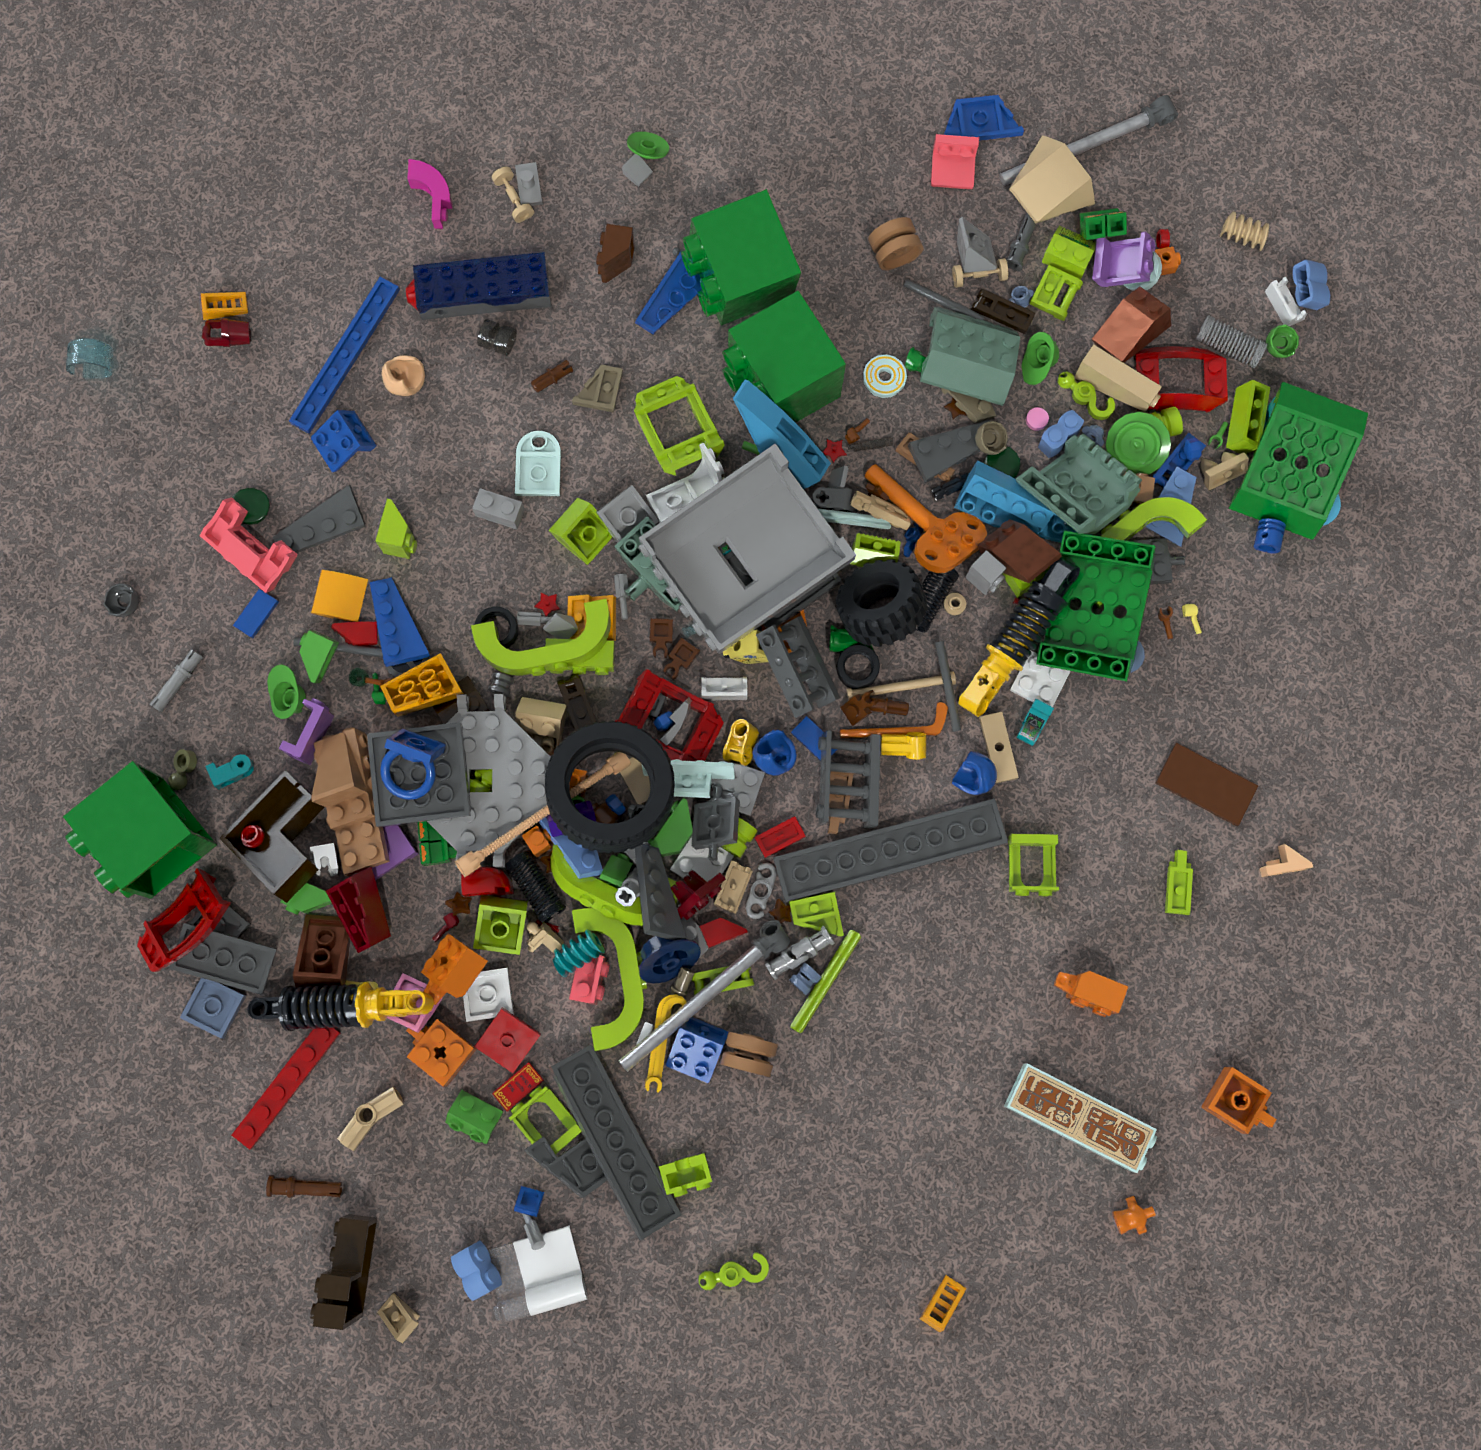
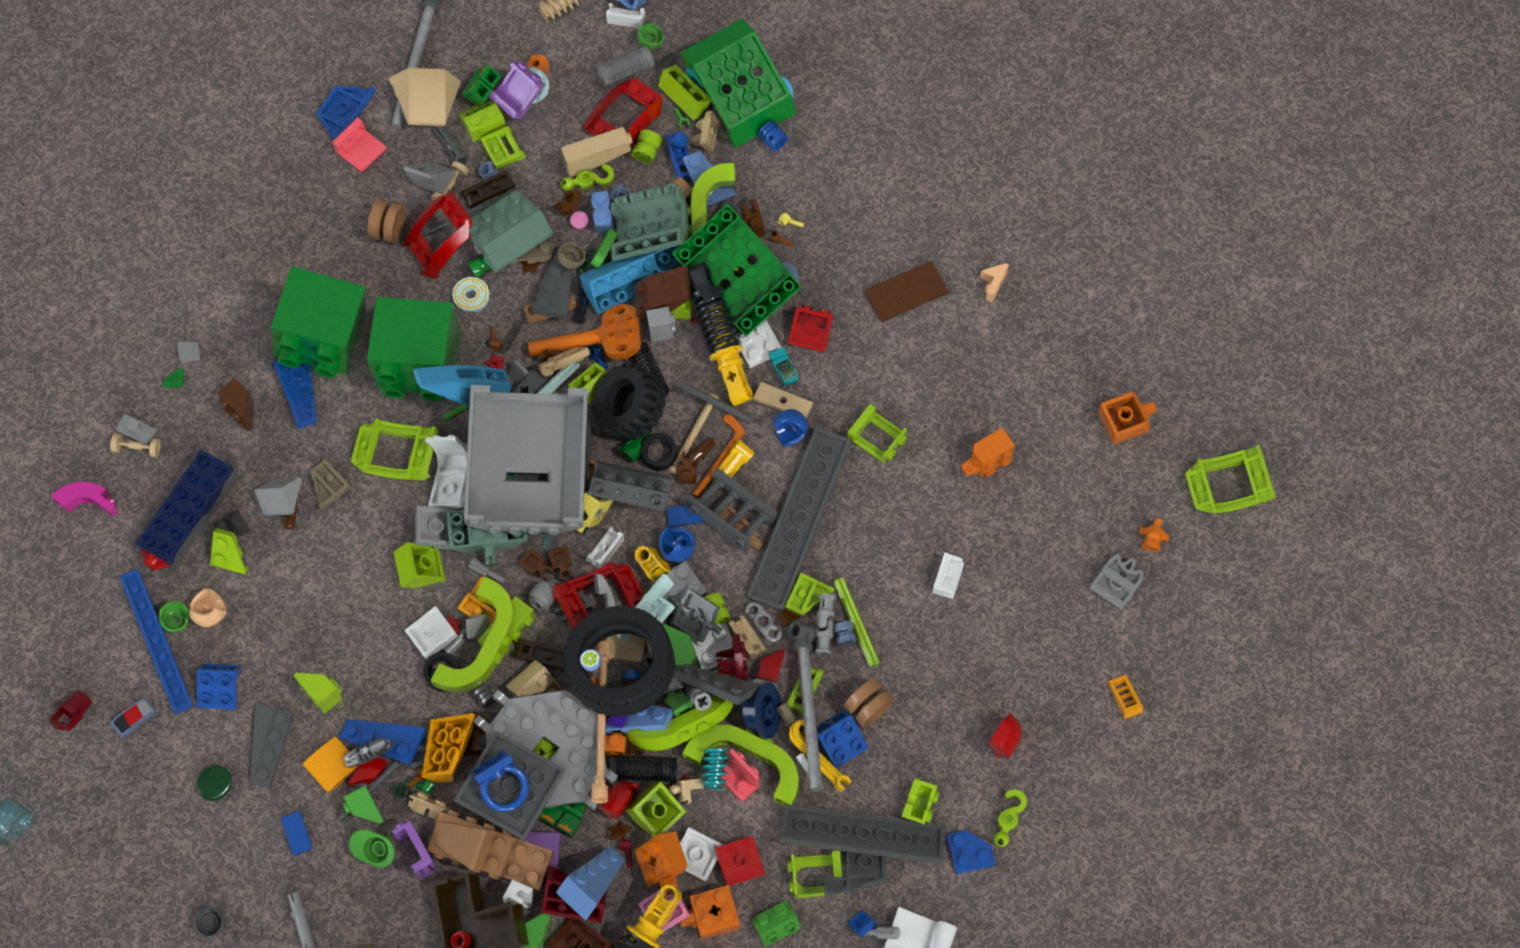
camera: 50 degrees left, 10 degrees down
(215, 312) = (46, 711): light orange slope -> none
(231, 772) = (400, 927): teal leg -> none
(243, 550) = (247, 806): coral bracket -> none
(260, 389) = (132, 717): none -> slope
(361, 702) = (422, 803): none -> tan hinge
(368, 620) = (368, 752): none -> flat silver hinge
(371, 348) = (173, 610): none -> bright green hair
(377, 919) = (589, 882): none -> medium blue wedge
(468, 351) = (226, 552): none -> lime wing
(498, 509) = (358, 610): light grey brick -> none
(518, 1086) = (776, 878): red tile -> none
(525, 590) = (431, 632): none -> white plate
(538, 467) = (349, 564): light aqua tile -> none
(556, 354) = (278, 496): none -> light grey slope
(584, 760) = (590, 660): none -> tile
(602, 179) = (175, 380): none -> green tile
(634, 663) = (542, 596): none -> light grey head
(648, 145) = (177, 331): bright green dish -> none
(663, 722) = (597, 602): blue tile -> none
(673, 1257) = (969, 852): none -> blue plate
(779, 837) = (736, 583): red plate -> none
(812, 1215) = (1006, 737): none -> red brick
(892, 318) = (431, 260): none -> red wedge
(938, 1038) = (948, 576): none -> white hinge
(950, 608) = (664, 365): tan plate -> none
(1023, 462) = (603, 248): none -> bright green beam
(1039, 357) = (539, 189): bright green piece -> none
(1048, 397) = (570, 203): none -> reddish brown bracket
(1057, 1214) = (1118, 581): none -> light grey plate
(1081, 1118) = (1066, 522): brick -> none
(1094, 719) = (811, 328): none -> red plate
(1133, 325) = (565, 115): slope -> none
(1139, 442) = (647, 168): bright green piece -> none
(1163, 238) = (522, 56): red tile -> none
(1163, 581) = (753, 218): none -> reddish brown hinge
(1179, 885) = (959, 354): lime hinge -> none
(1278, 1283) = (1257, 473): none -> lime wedge

